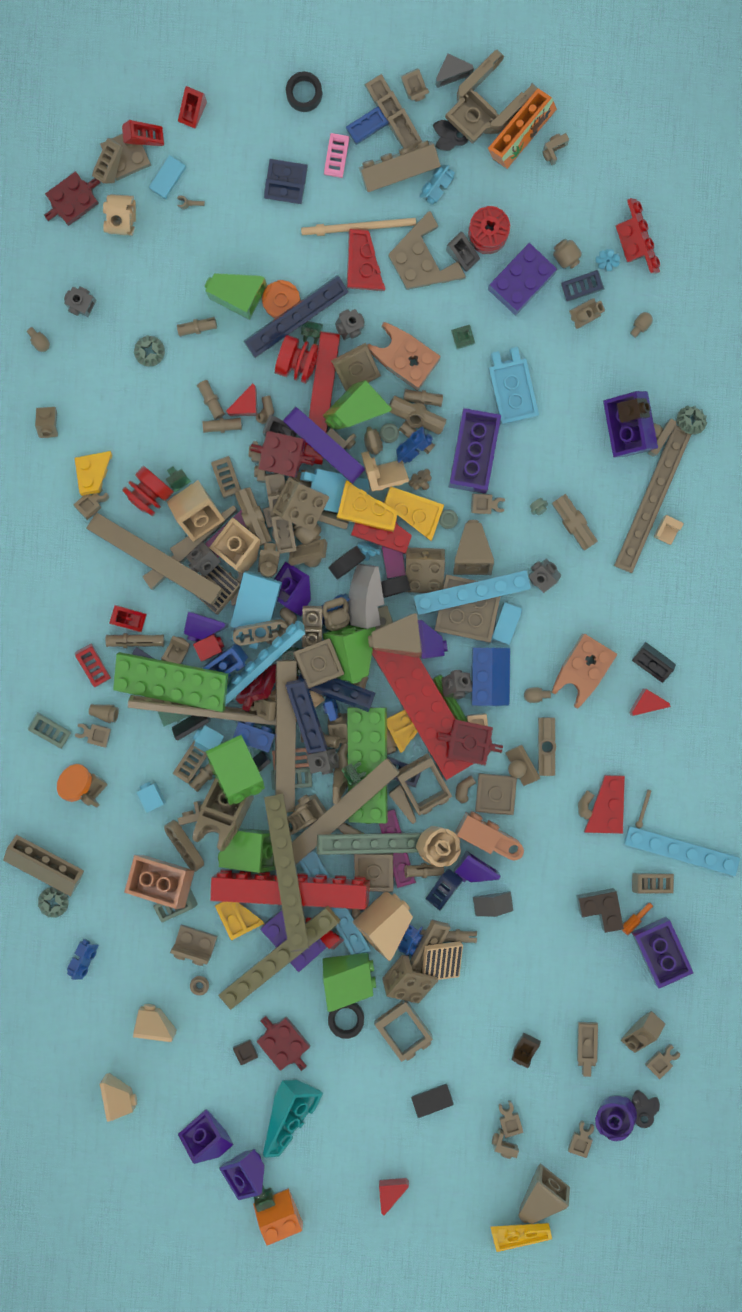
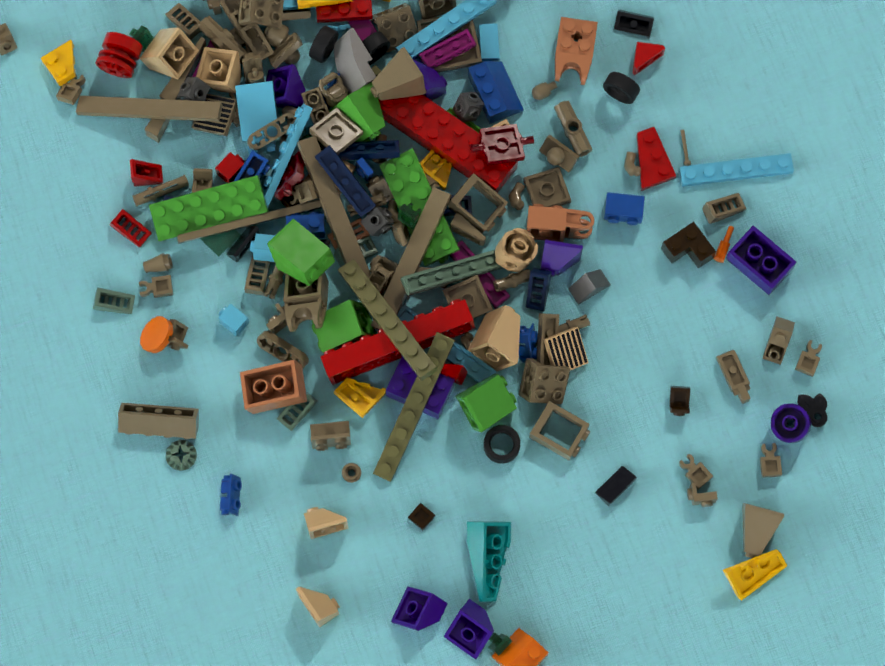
camera: 25 degrees left, 15 degrees down
(201, 627) = (217, 146): dark purple slope -> none
(283, 1043) = (453, 492): dark red plate -> none
(391, 1191) = (615, 586): red slope -> none
(462, 618) = (448, 49): none -> magenta tile
(558, 846) = (624, 208): none -> blue brick
(610, 728) = (621, 87): none -> black tyre

